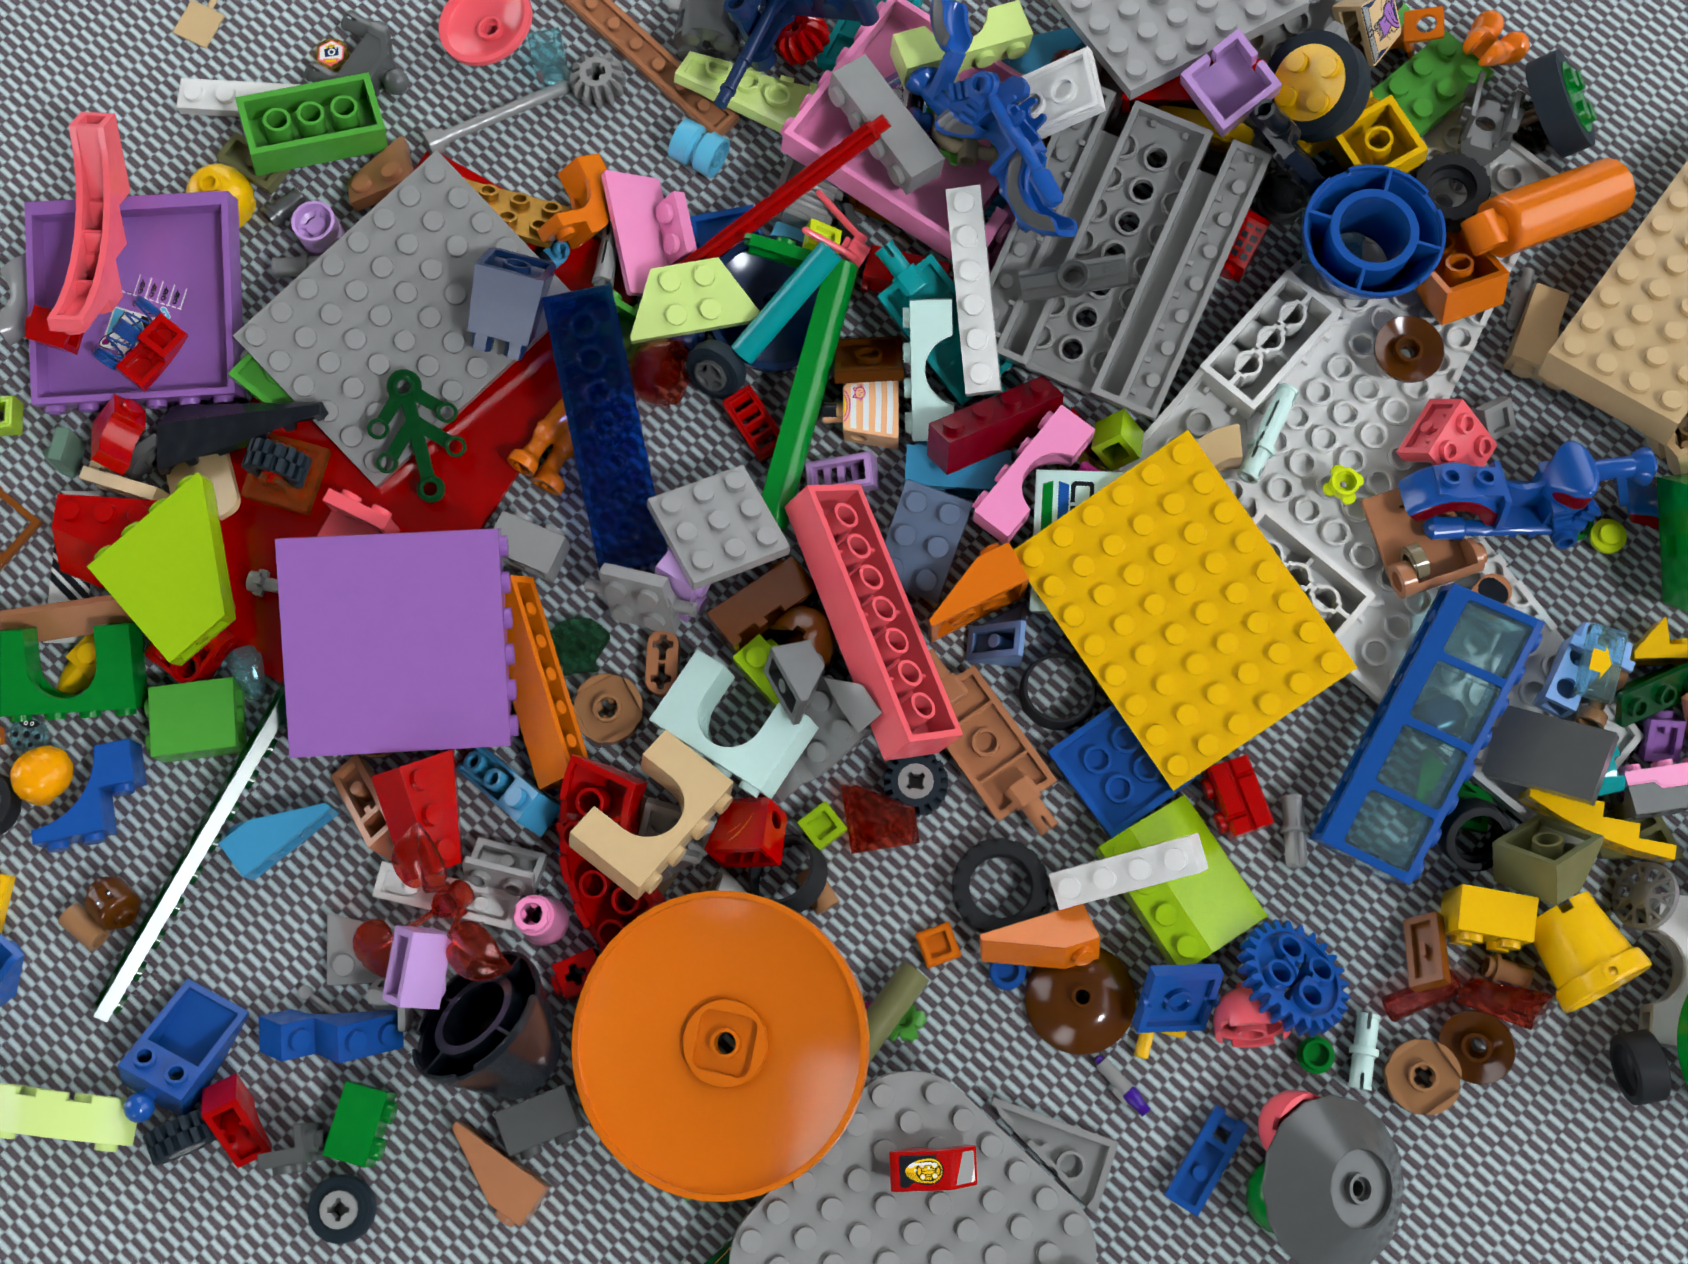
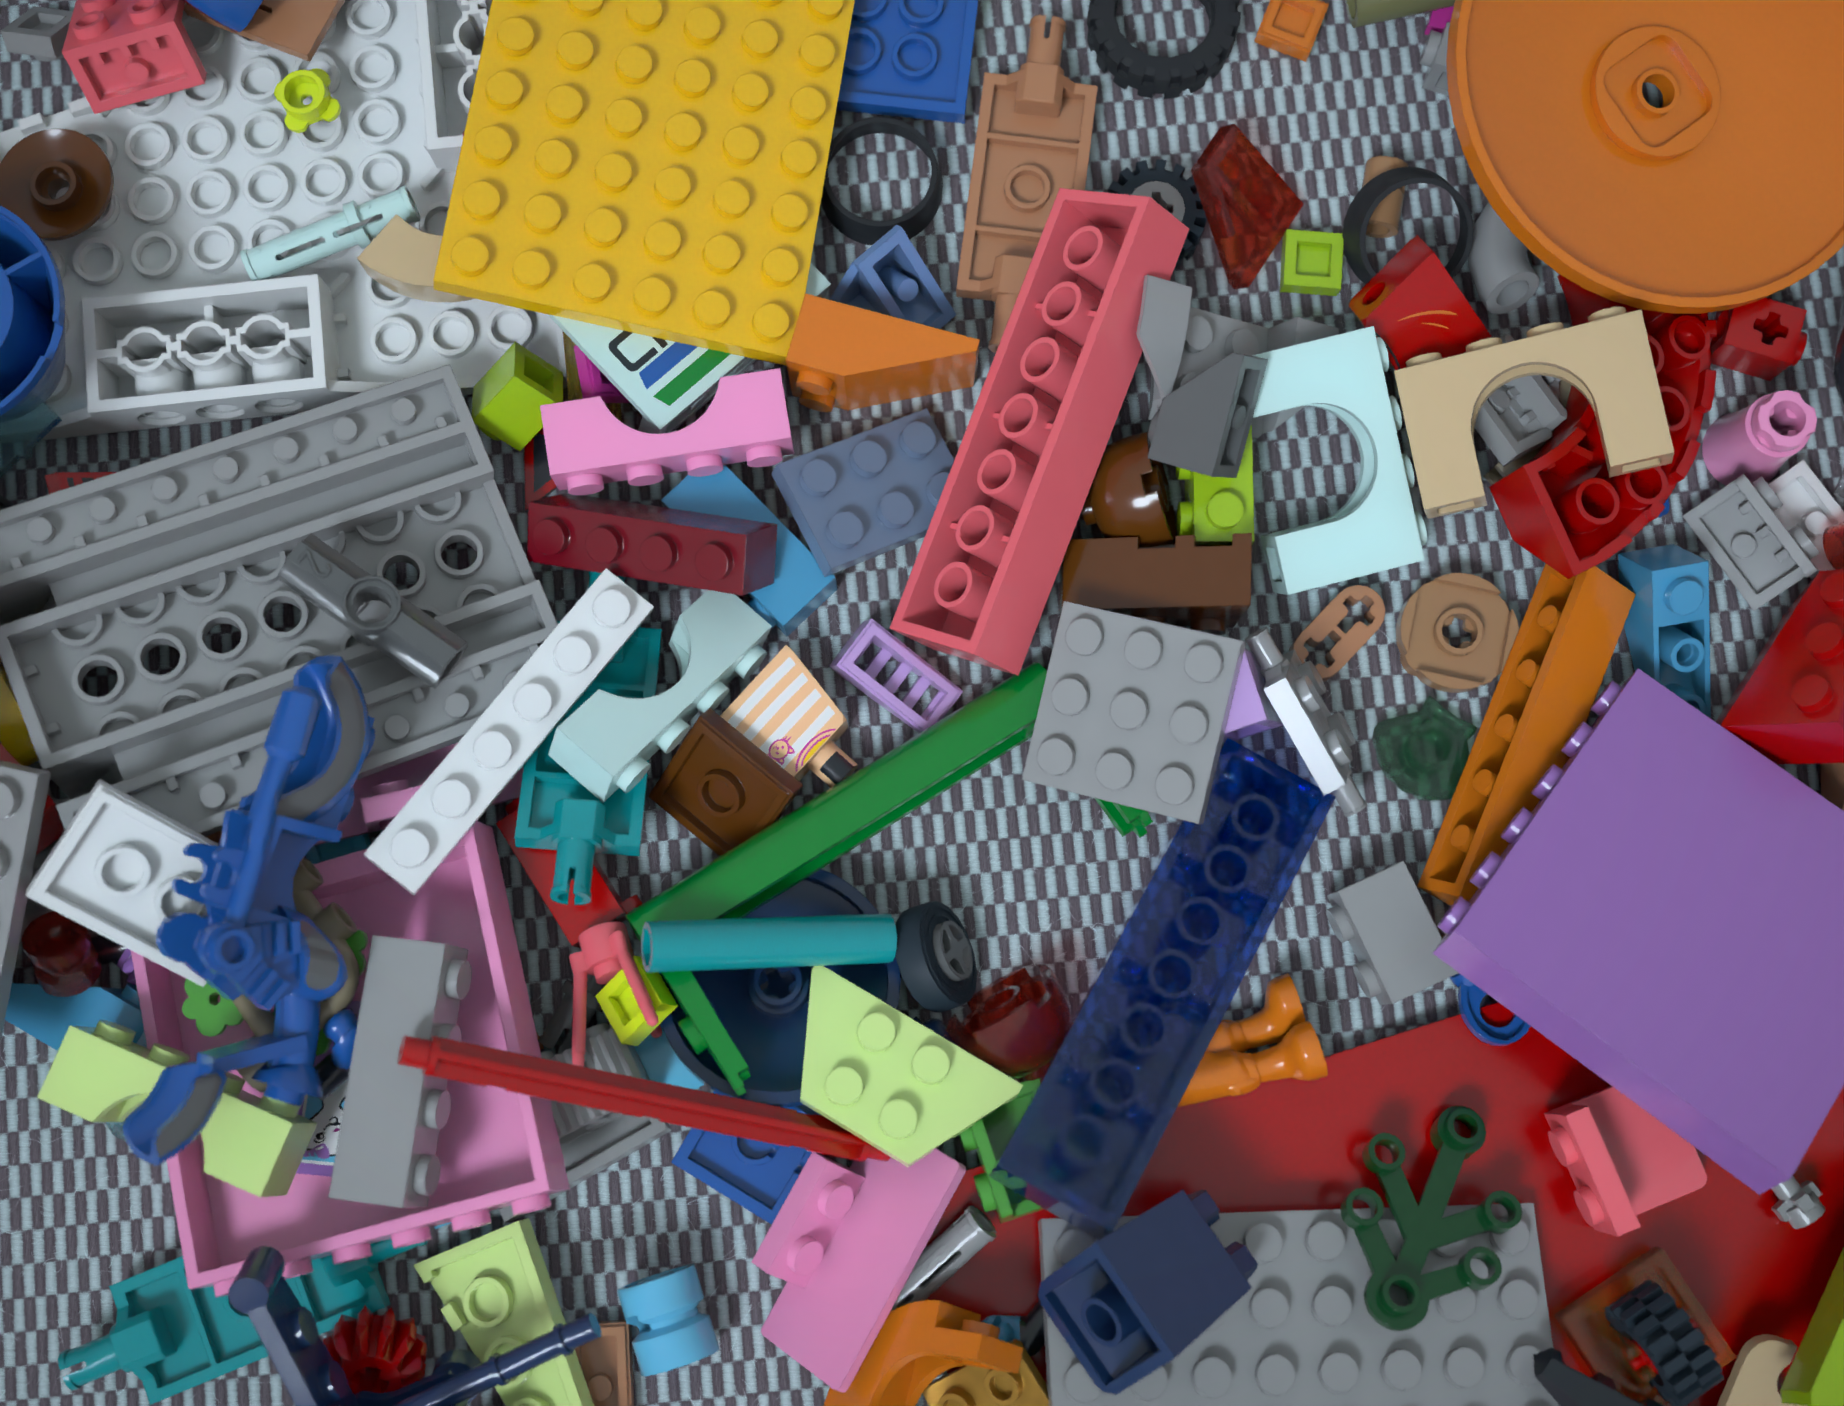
camera: 145 degrees left, 5 degrees up
(737, 401) = (947, 894): red slope -> none

